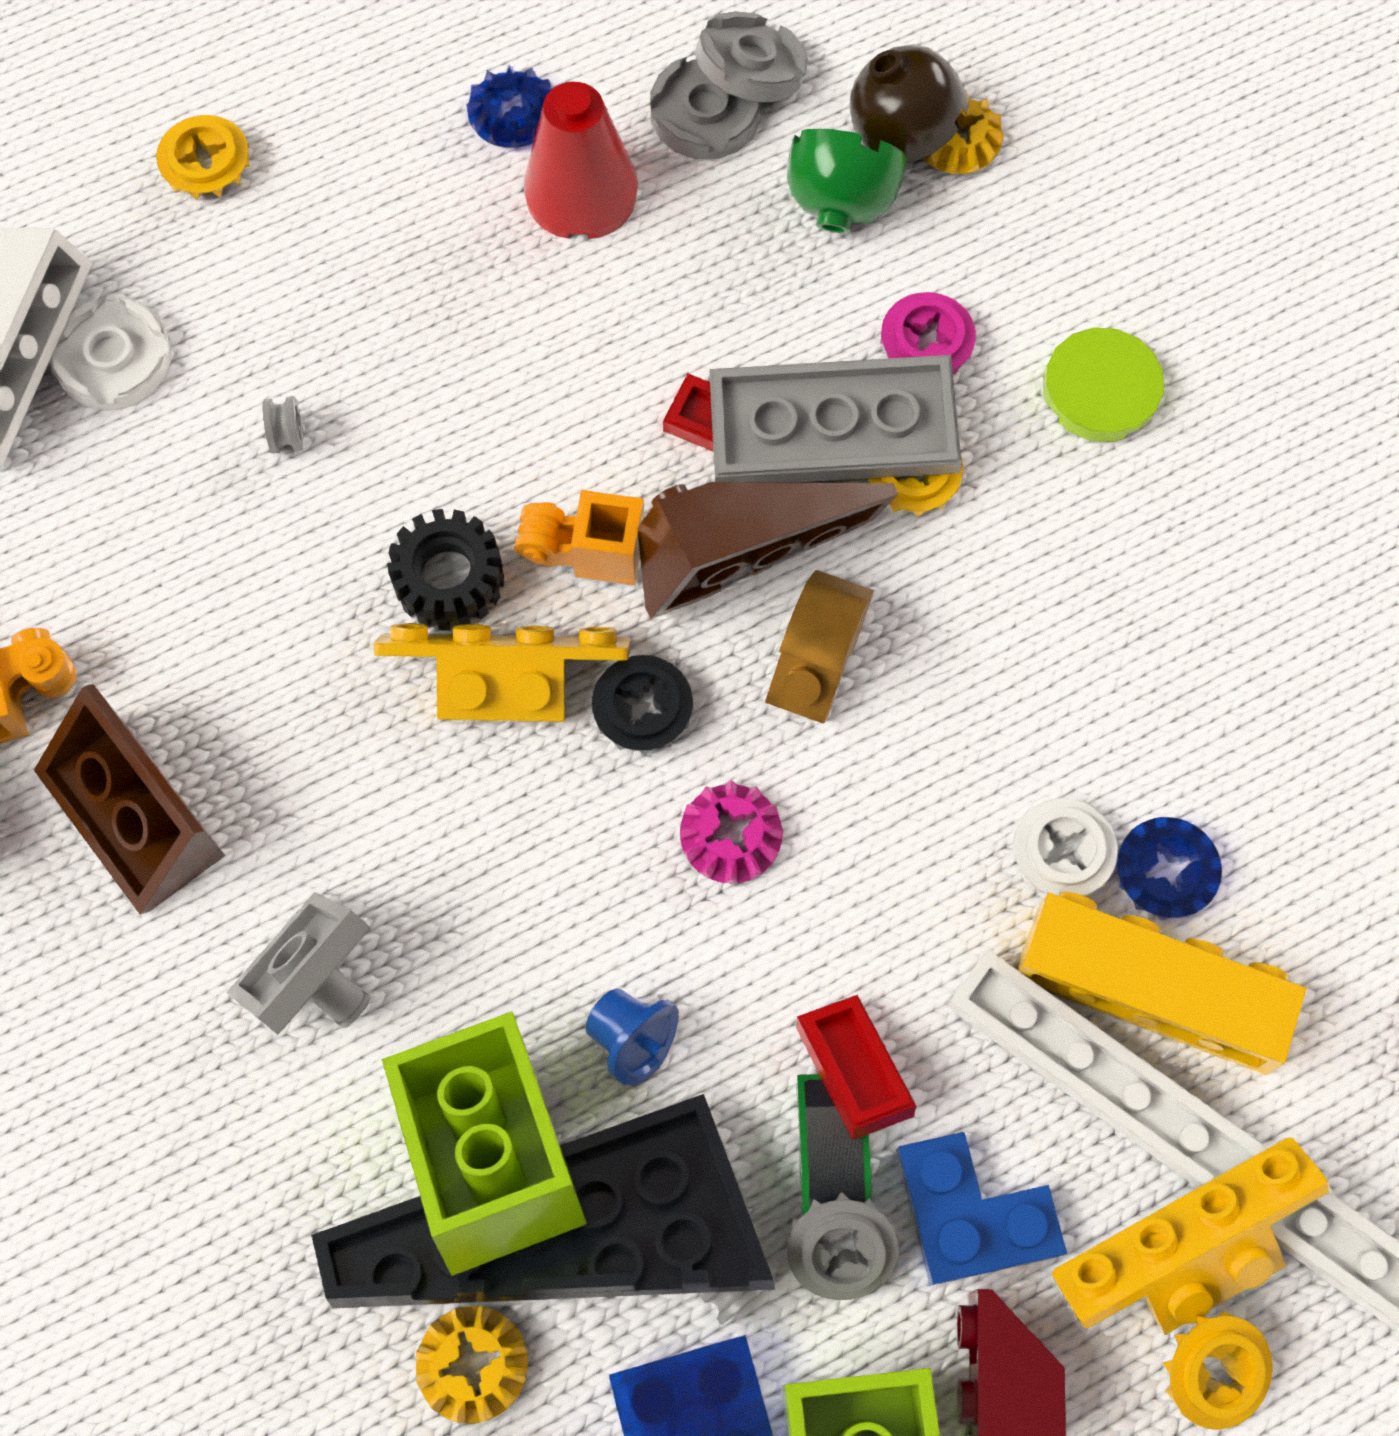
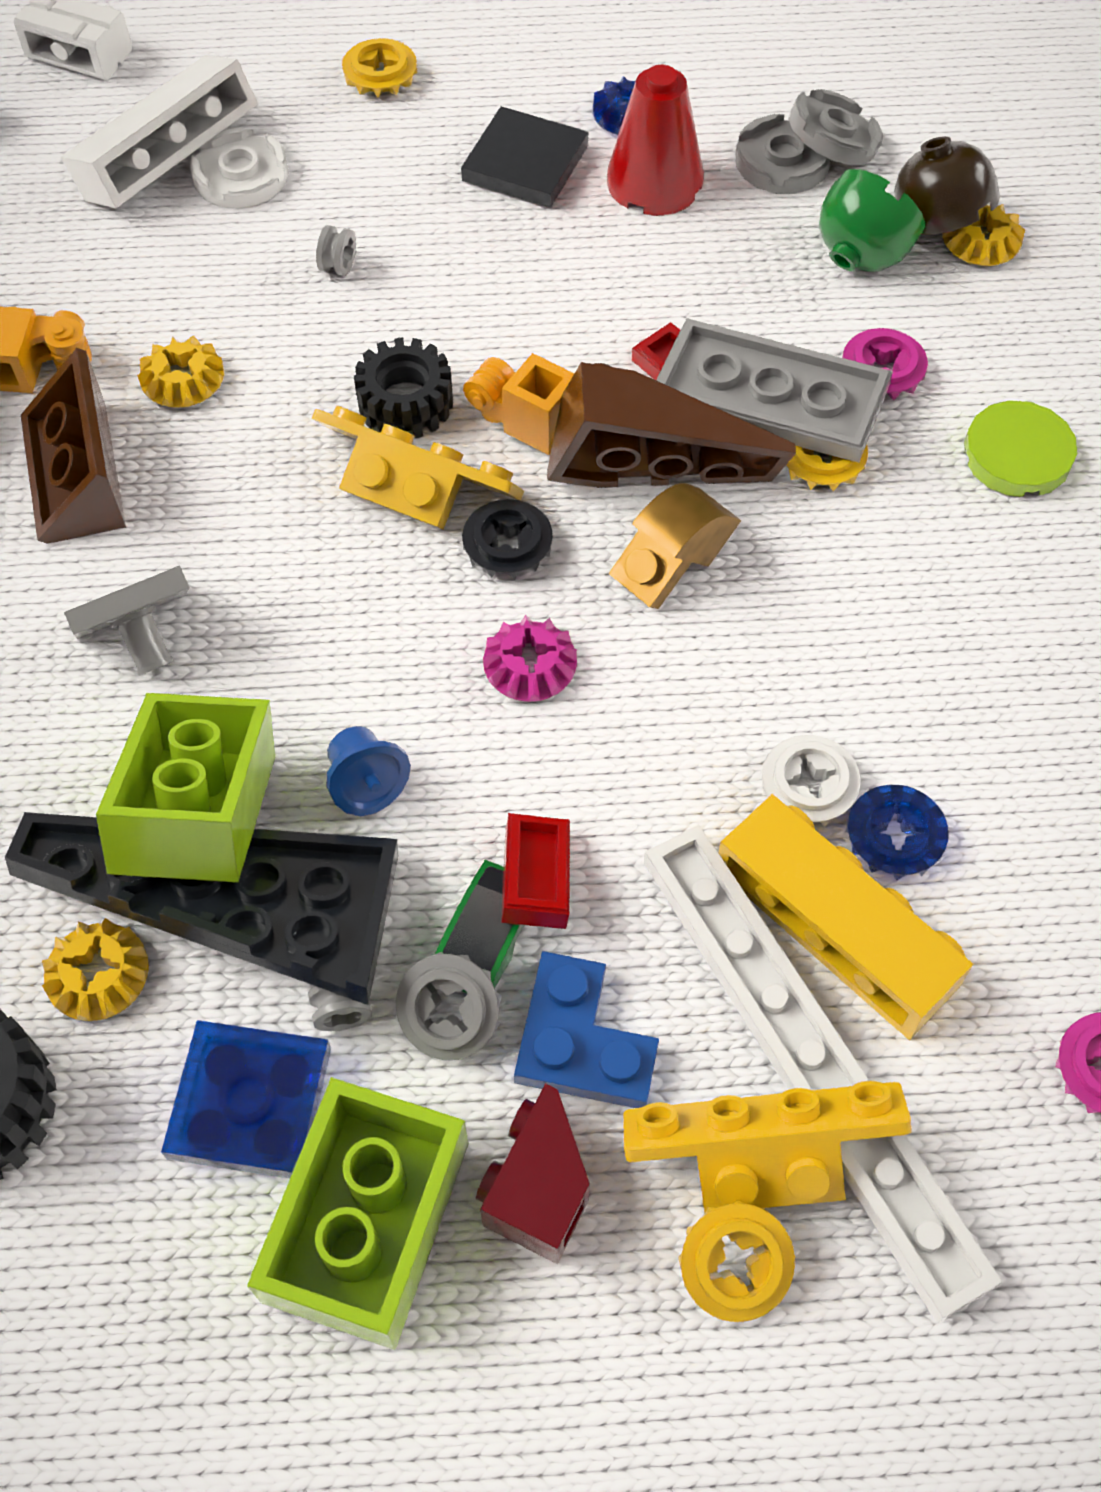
camera: 25 degrees right, 10 degrees down
(195, 668) = (180, 388): none -> yellow gear
(427, 216) = (525, 156): none -> black tile

